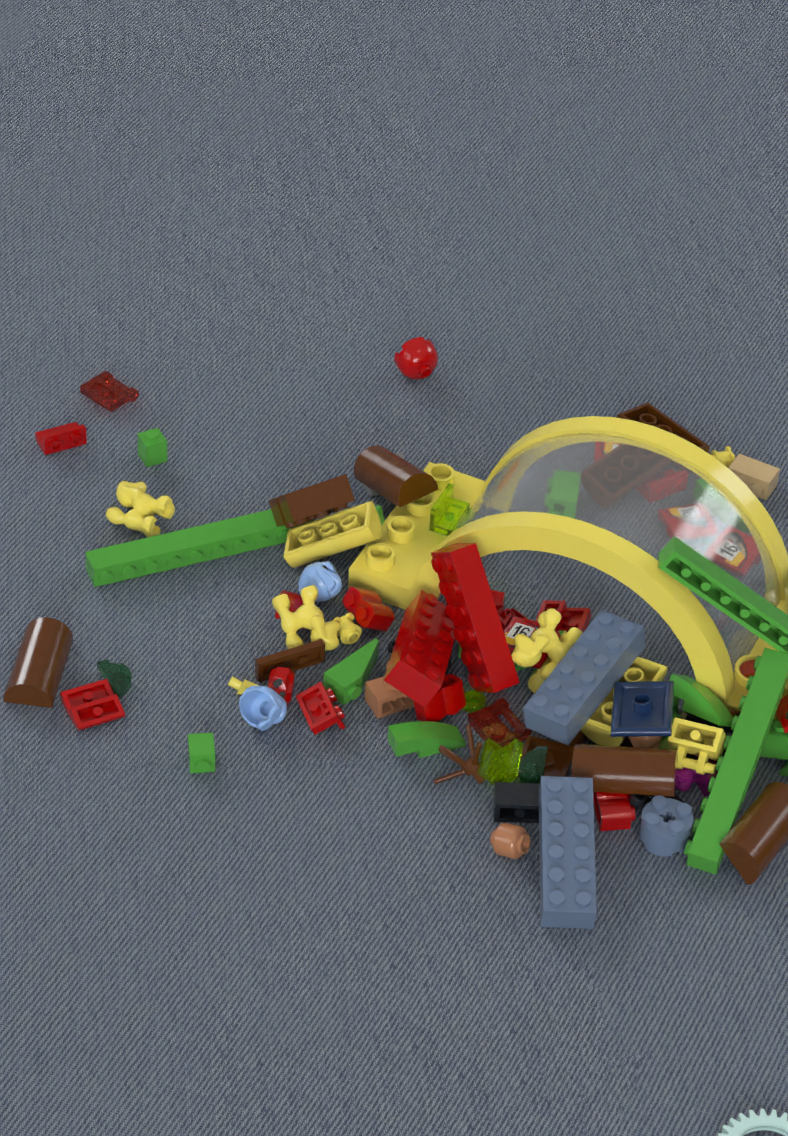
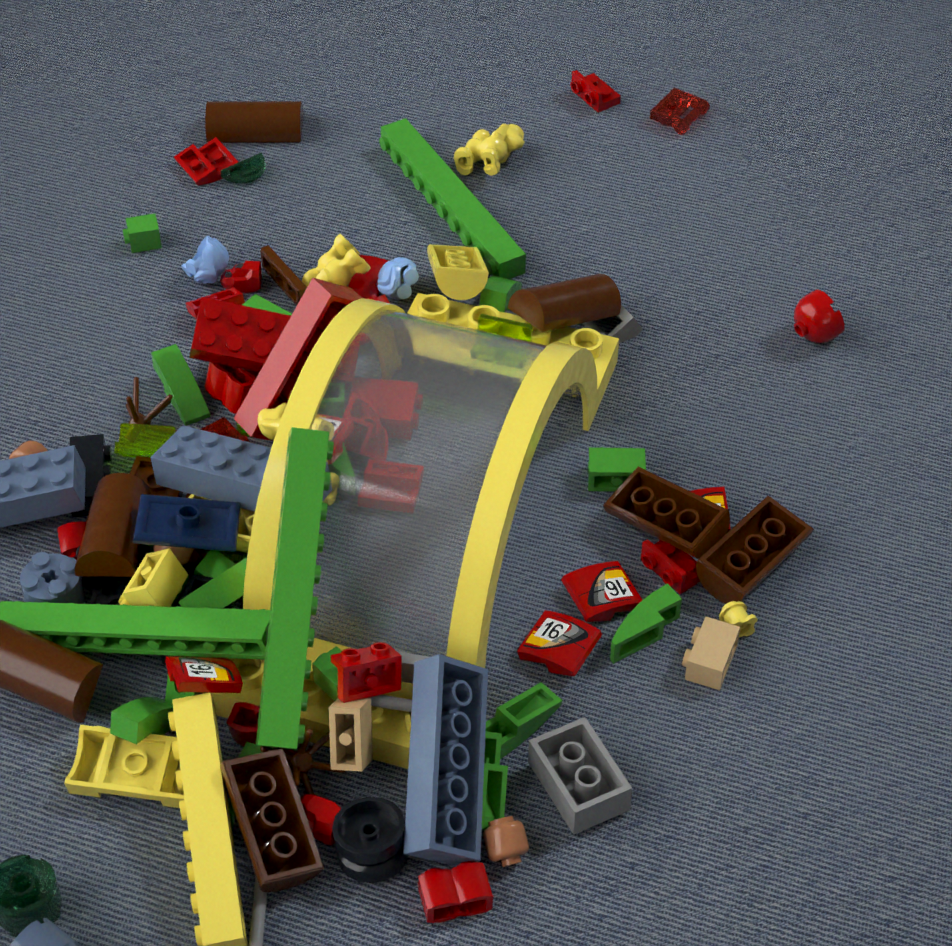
camera: 85 degrees right, 5 degrees up
(152, 447) = (591, 145): bright green brick -> none
(239, 685) = (244, 252): light yellow bar -> none
(312, 502) = (494, 239): reddish brown piece -> none
(533, 765) = (126, 460): clear green plate -> none

